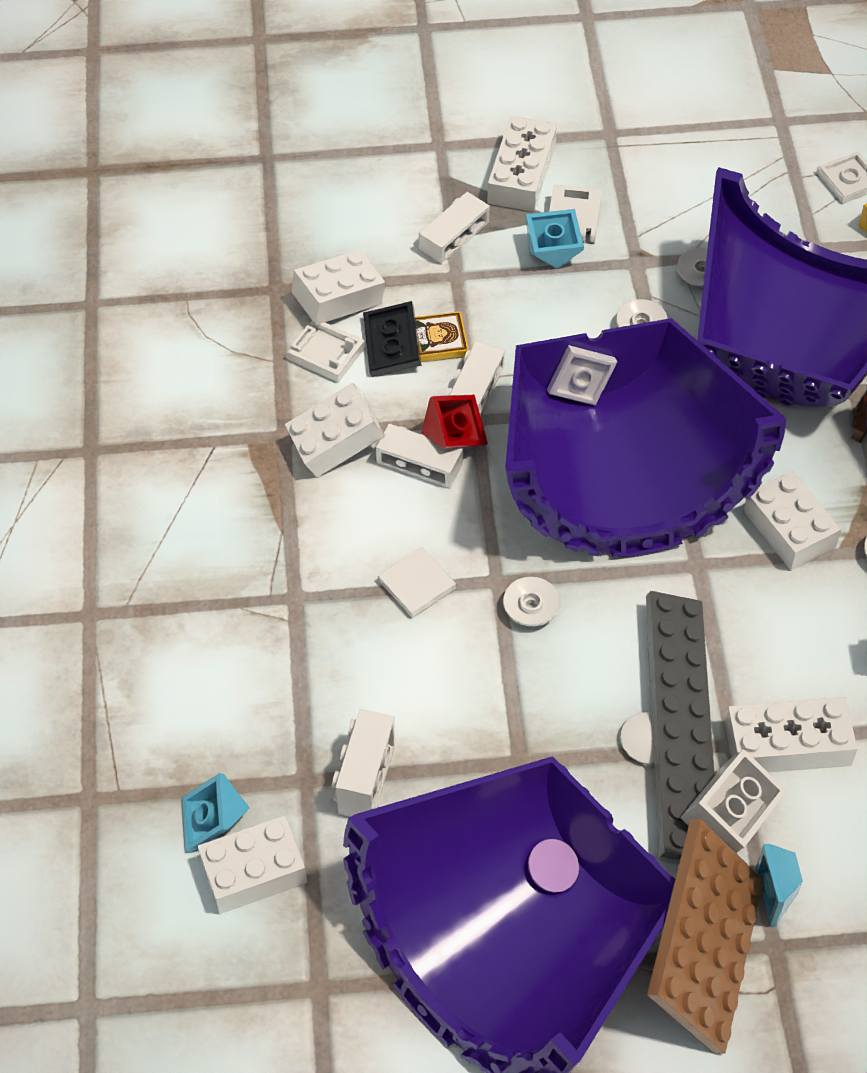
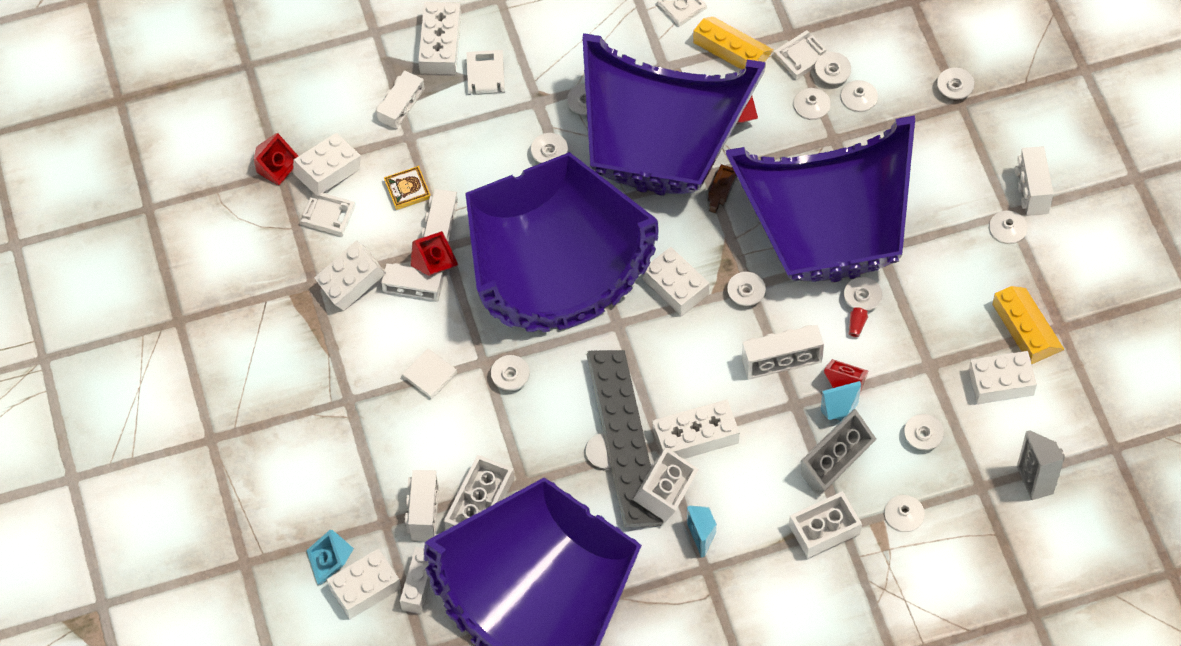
camera: 10 degrees left, 5 degrees up
(270, 270) = (274, 159): none -> red slope
(328, 883) = (416, 584): none -> white brick
(392, 339) = (374, 196): black tile -> none
(459, 753) = (484, 481): none -> white brick
(553, 865) = (557, 546): lavender piece -> none
(554, 236) = (474, 95): medium azure slope -> none
(581, 375) = (514, 203): white tile -> none
(706, 937) = (660, 570): medium nougat plate -> none

